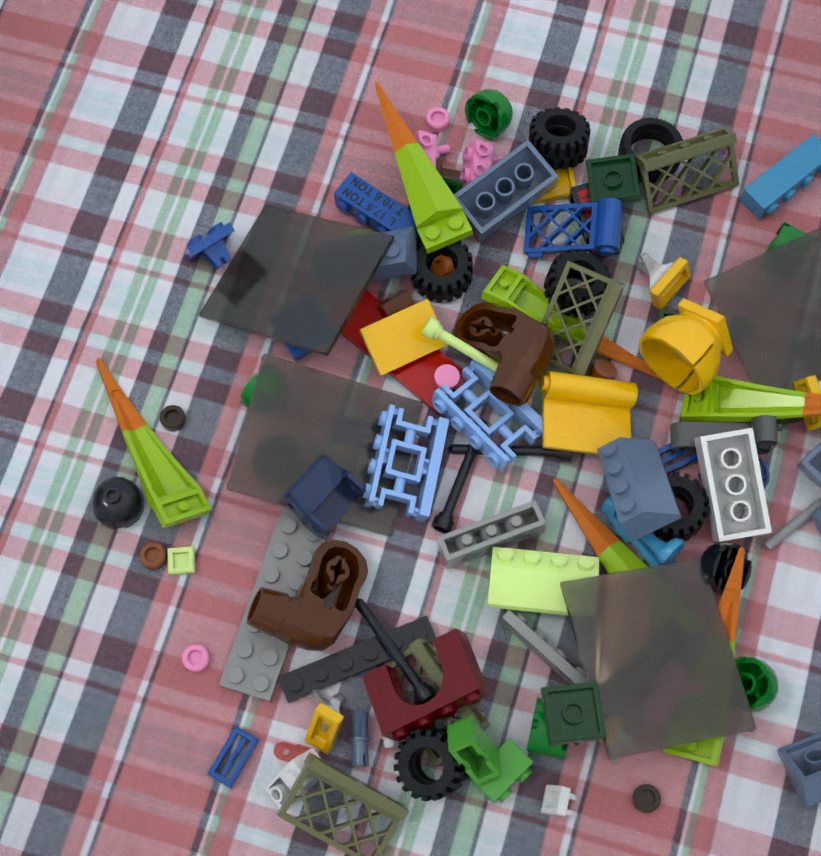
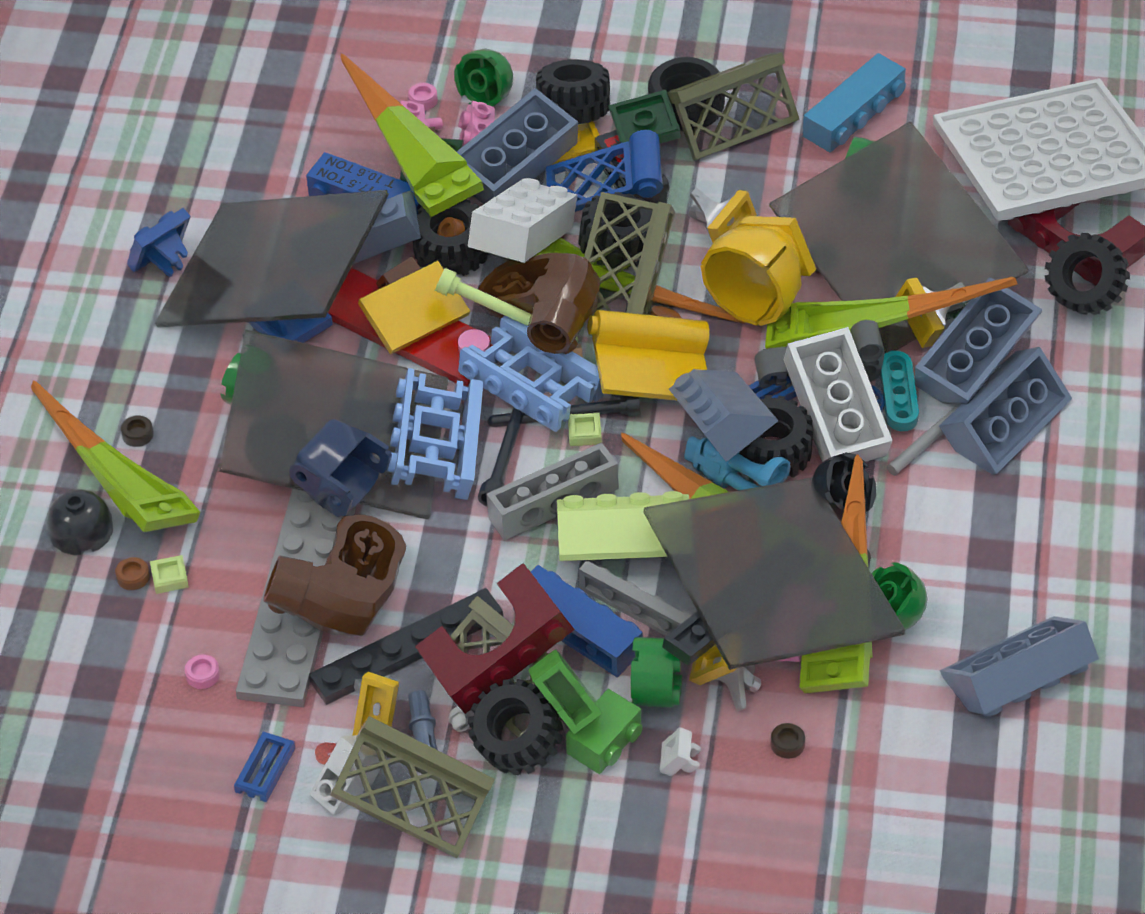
camera: 10 degrees left, 20 degrees down
(422, 691) = (446, 616): black piece -> none
(497, 662) = (597, 631): none -> blue brick
(500, 270) = (522, 220): none -> white brick
(525, 469) = (584, 429): none -> yellowish green tile
(573, 713) = (678, 625): dark green tile -> none
(787, 462) = (900, 409): none -> teal plate

